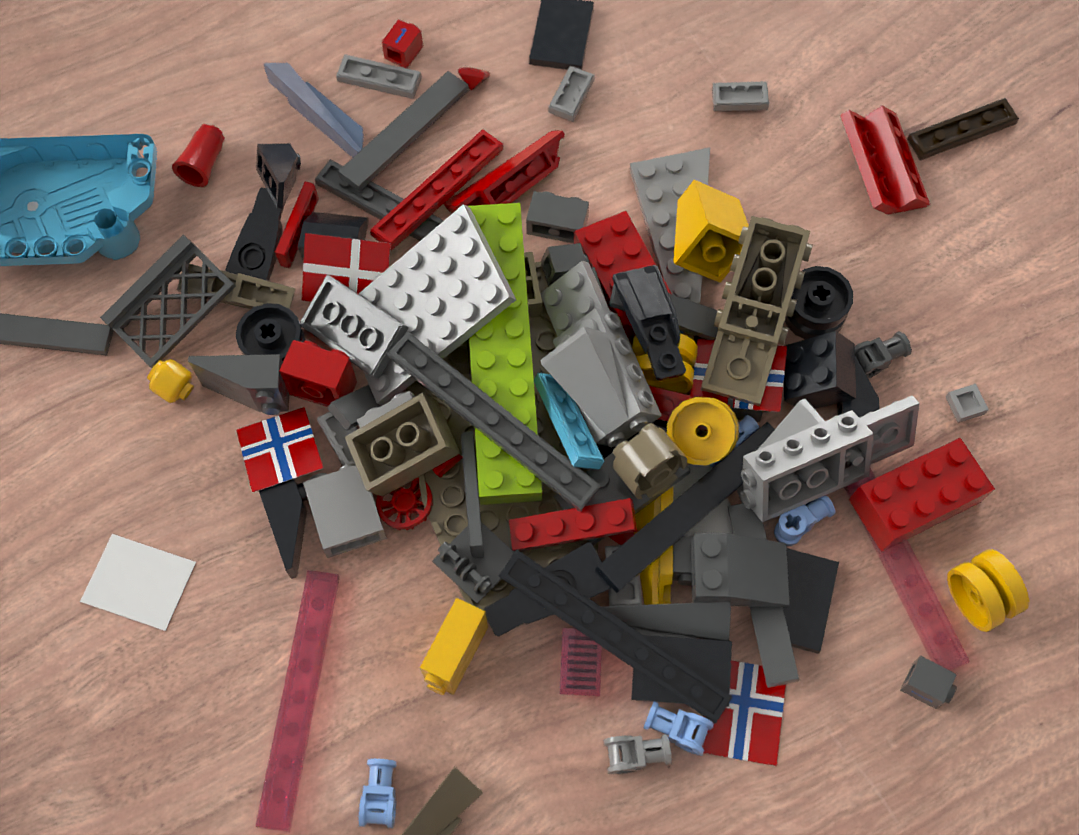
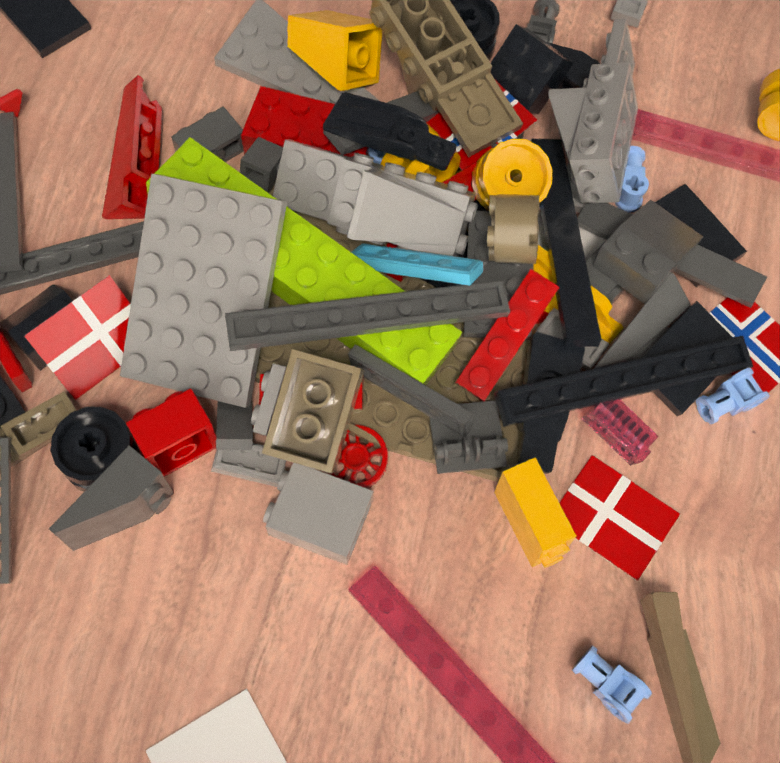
camera: 55 degrees left, 0 degrees up
(170, 380) = (44, 573): yellow head -> none
(279, 449) = (209, 526): sticker -> none
(287, 519) = (275, 566): black slope -> none
(353, 326) = (155, 366): tile -> none
(436, 189) = (86, 210): red tile -> none
(511, 711) = (617, 517): none -> red sticker
(571, 93) = (106, 48): light grey plate -> none
(636, 753) = (729, 446): light grey connector -> none
(921, 494) = (682, 88): red brick -> none

